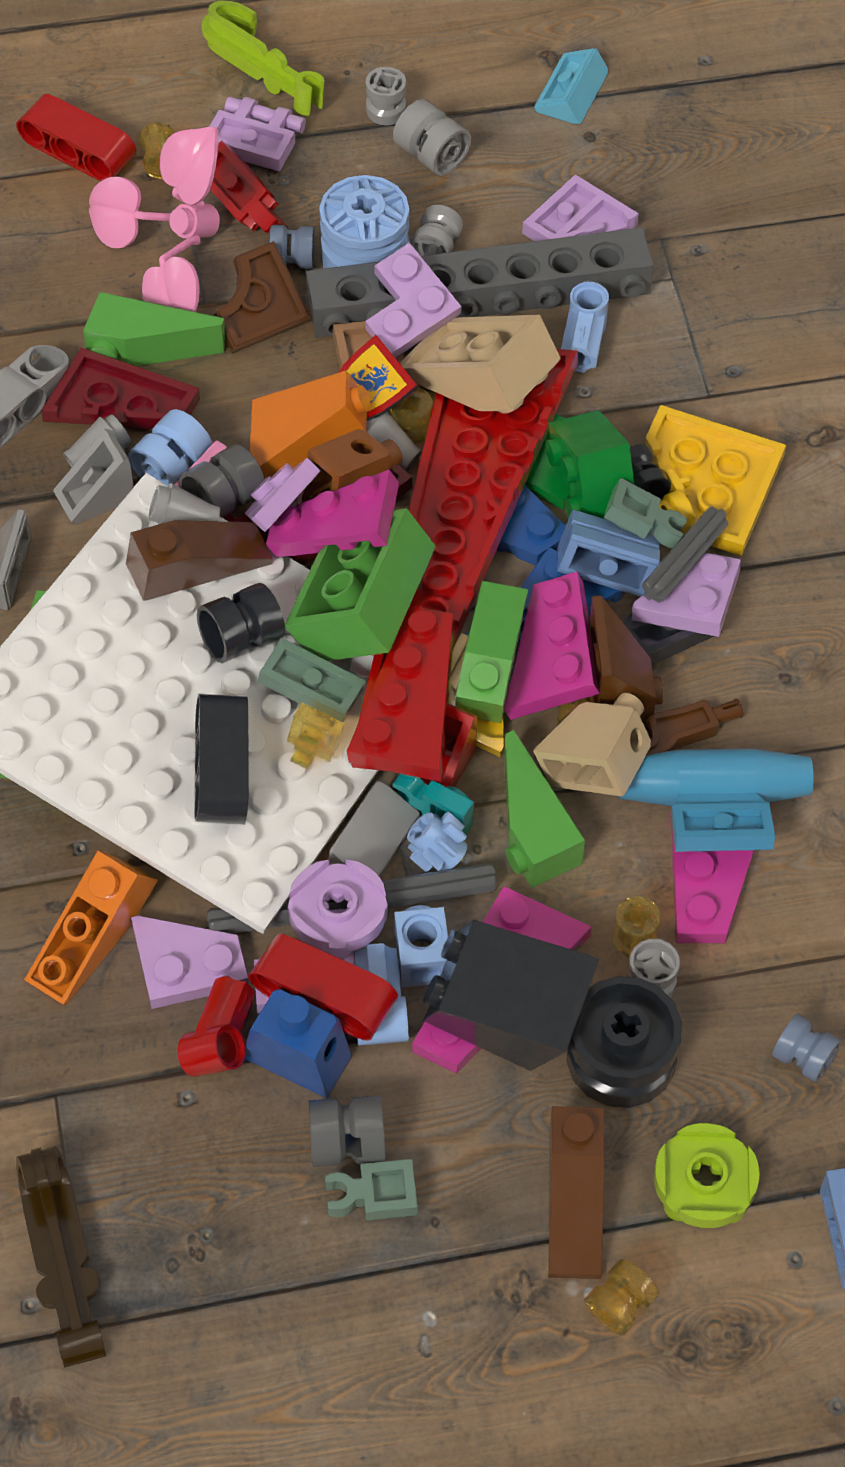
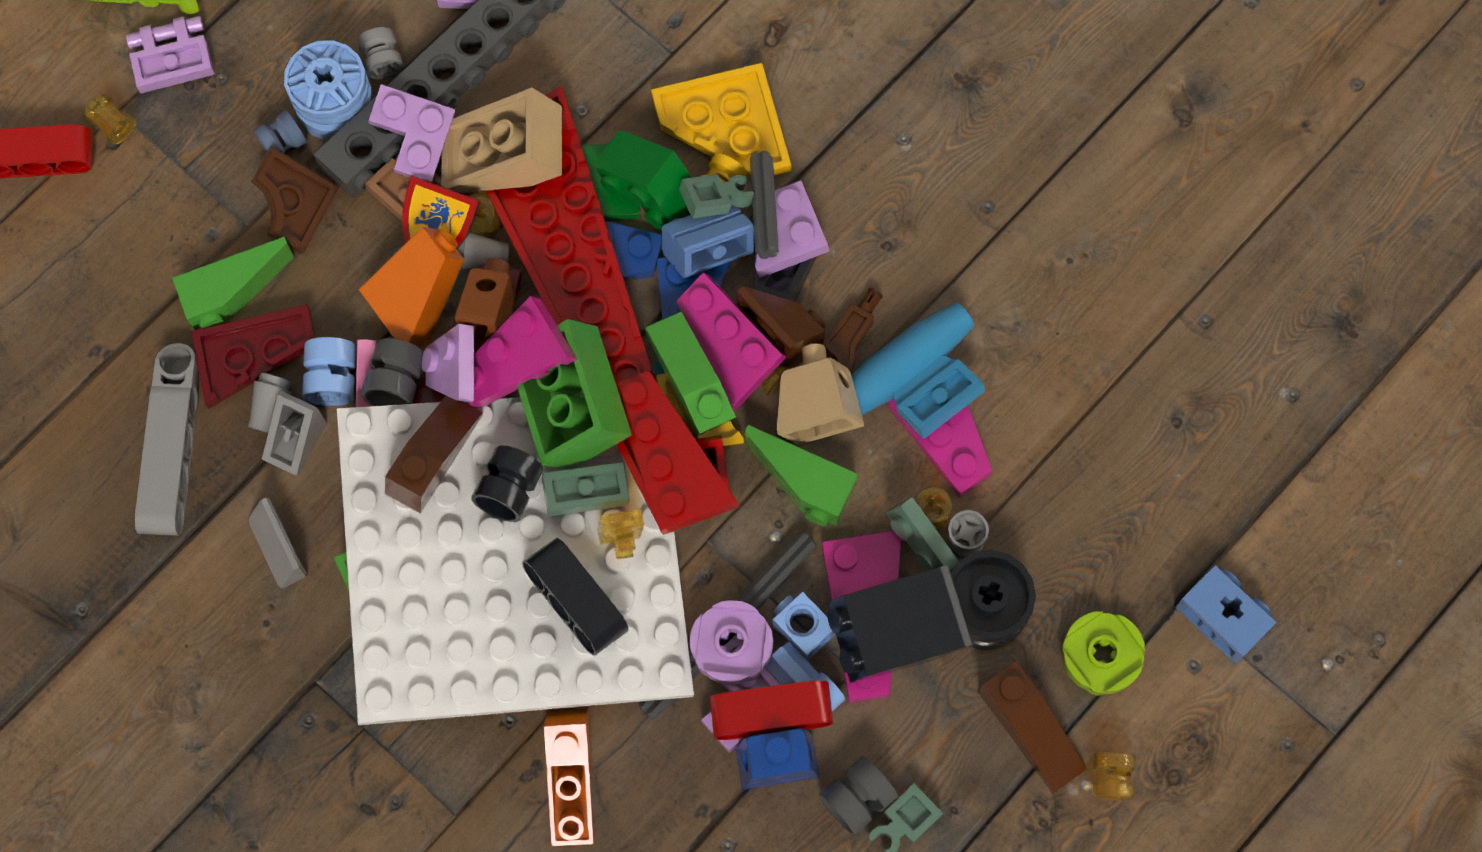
camera: 35 degrees left, 15 degrees up
(177, 504) = (391, 425): light grey cone -> none
(184, 959) = (651, 751): lavender wing -> none
(188, 166) = (174, 135): bright pink plant -> none
(218, 1039) = (723, 797): red piece -> none
(243, 191) = (200, 112): red hinge -> none
(375, 830) = (706, 566): light grey slope -> none
(436, 799) = (749, 513): teal plate -> none
(437, 841) = (756, 543): light blue gear -> none
(586, 323) = (549, 60): light blue piece -> none
(602, 921) = (916, 529): none -> sand green plate
(646, 473) = (690, 155): black wheel -> none
(811, 1050) = (1107, 516): sand blue wheel -> none

